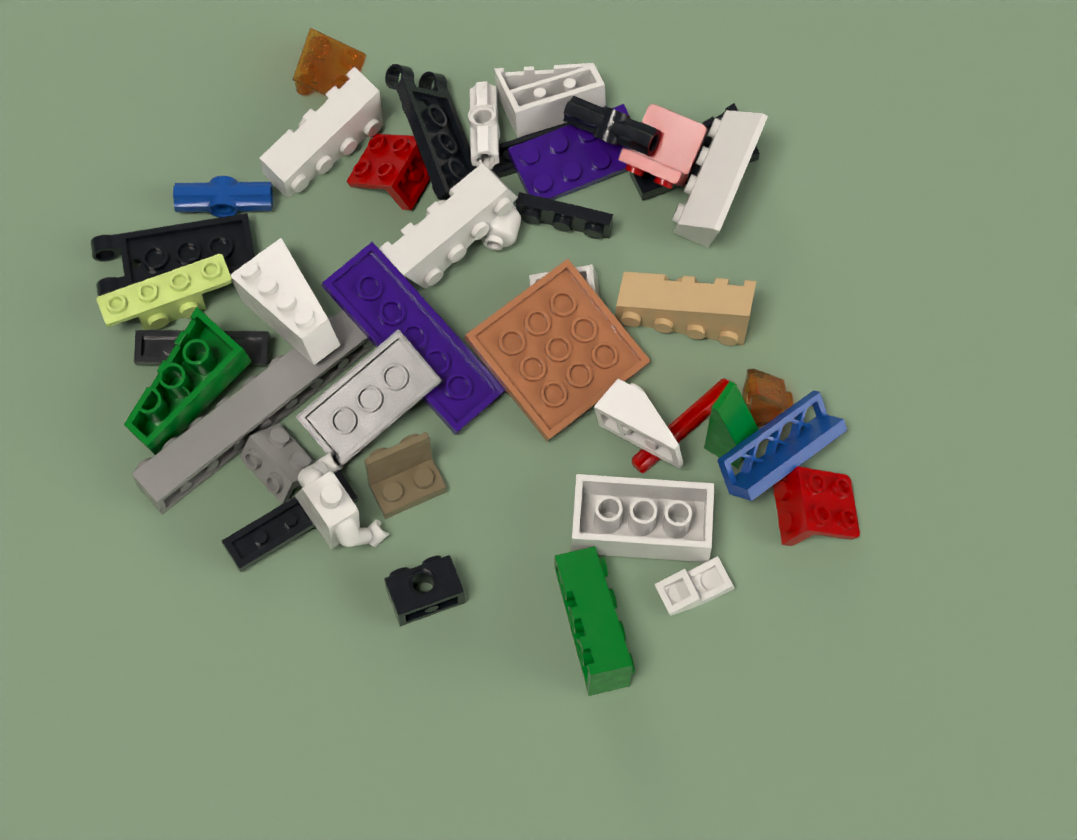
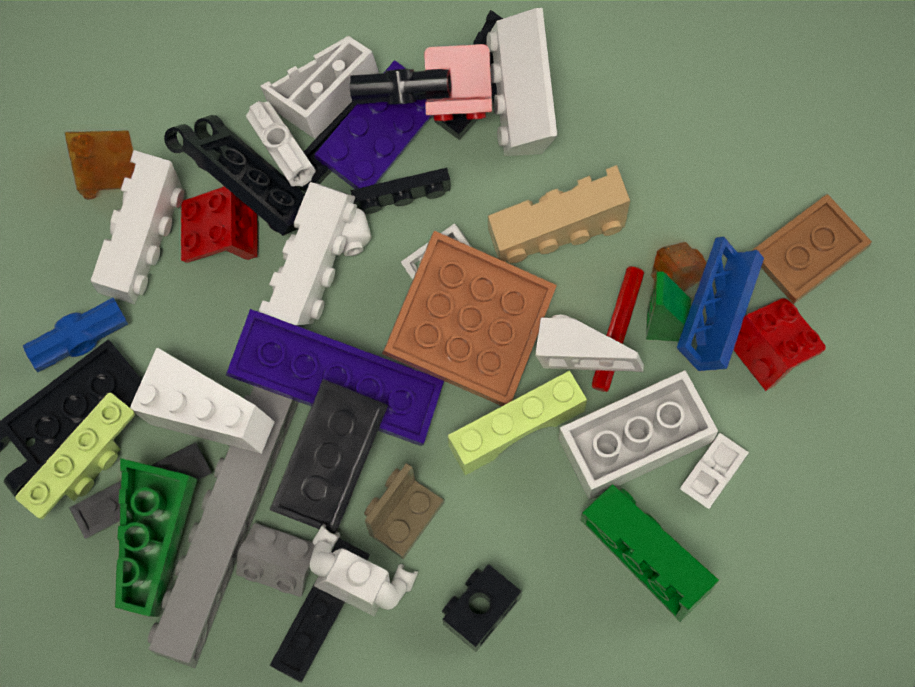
camera: 25 degrees left, 5 degrees up
(512, 453) = (493, 433): none -> yellowish green arch
(897, 445) = (811, 248): none -> medium nougat plate

